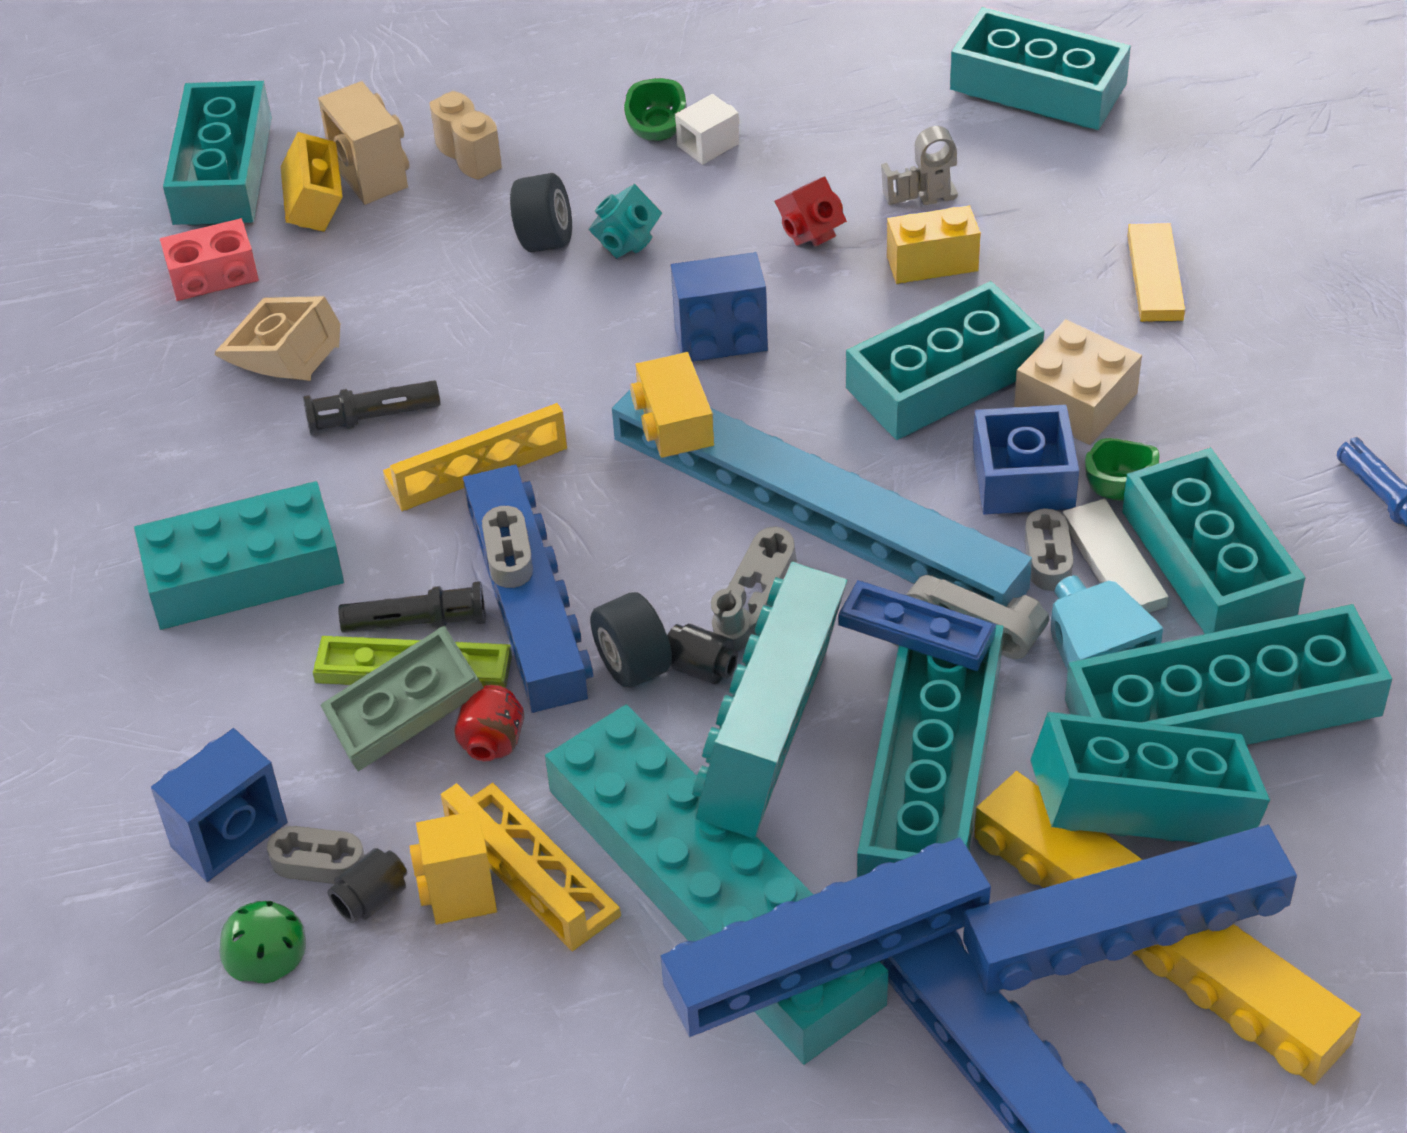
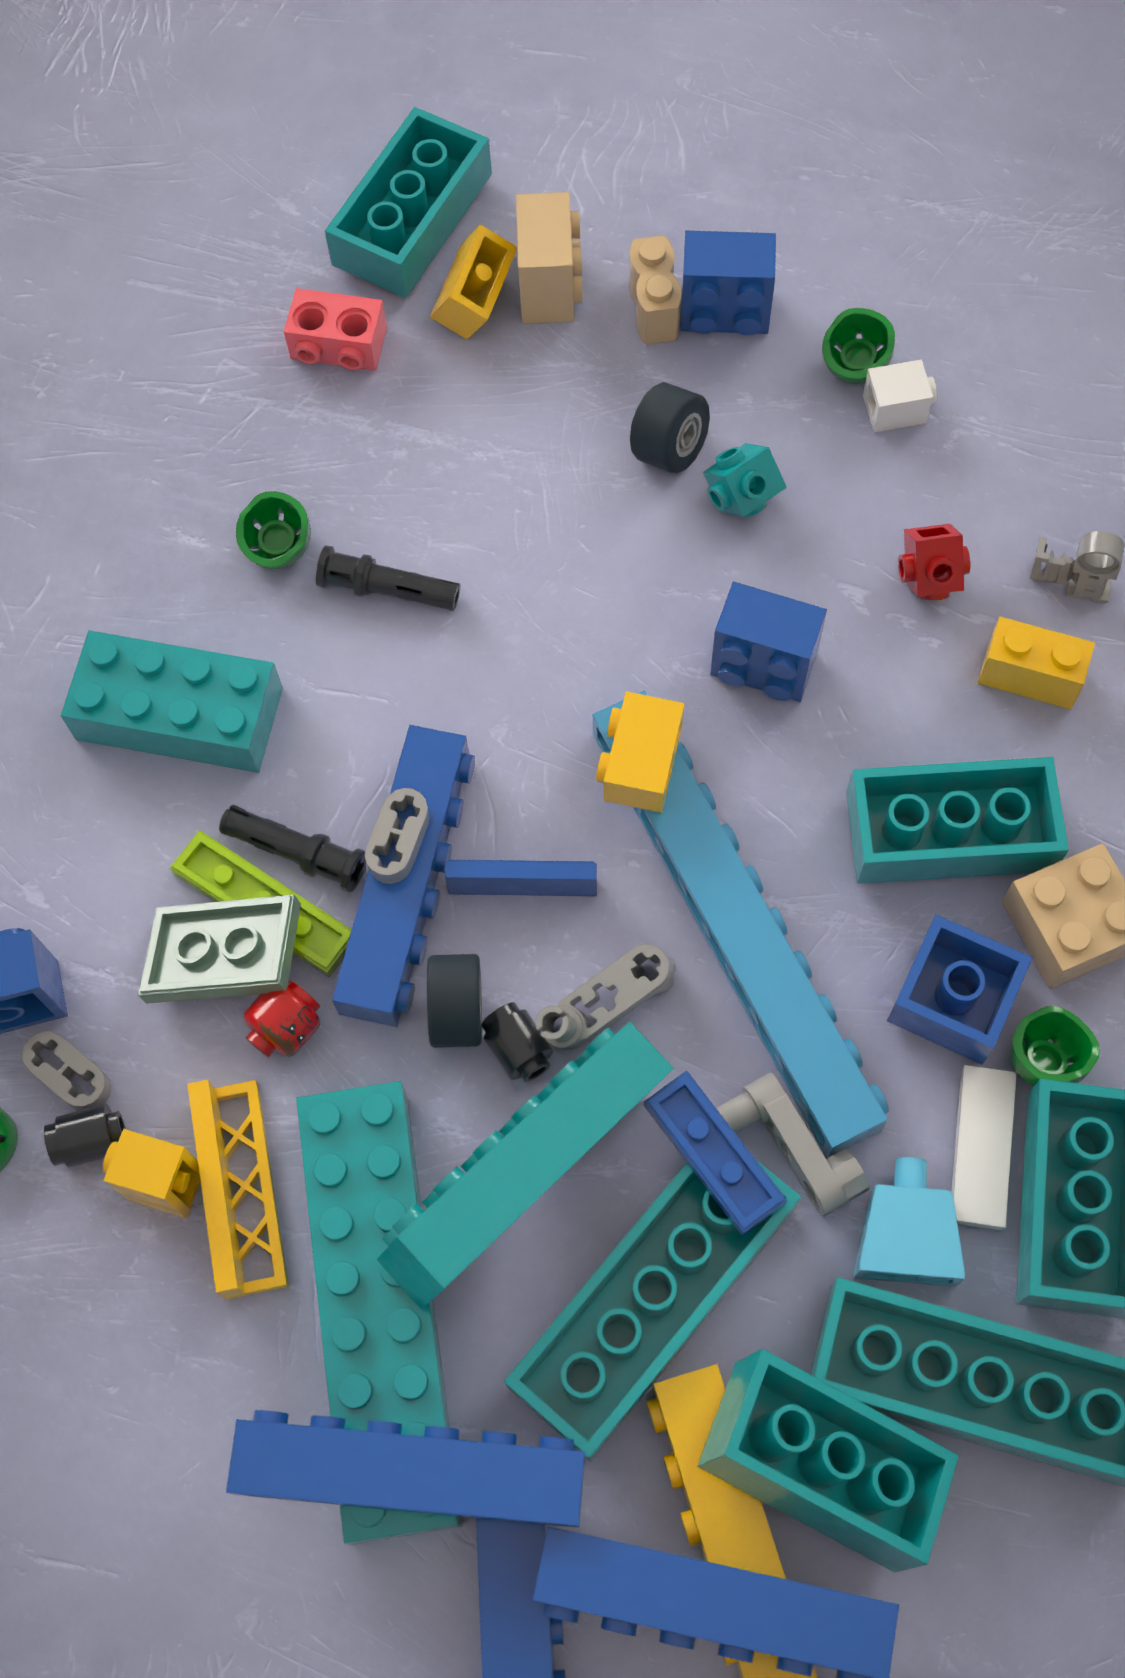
camera: 30 degrees right, 20 degrees up
(250, 420) = (276, 538): none -> green helmet
(284, 337) = (347, 463): tan slope -> none
(506, 444) = (447, 693): yellow fence -> none
(526, 101) = (728, 282): none -> blue brick
(626, 545) = (521, 877): none -> blue tile
(1057, 549) = (935, 1106): light grey beam -> none

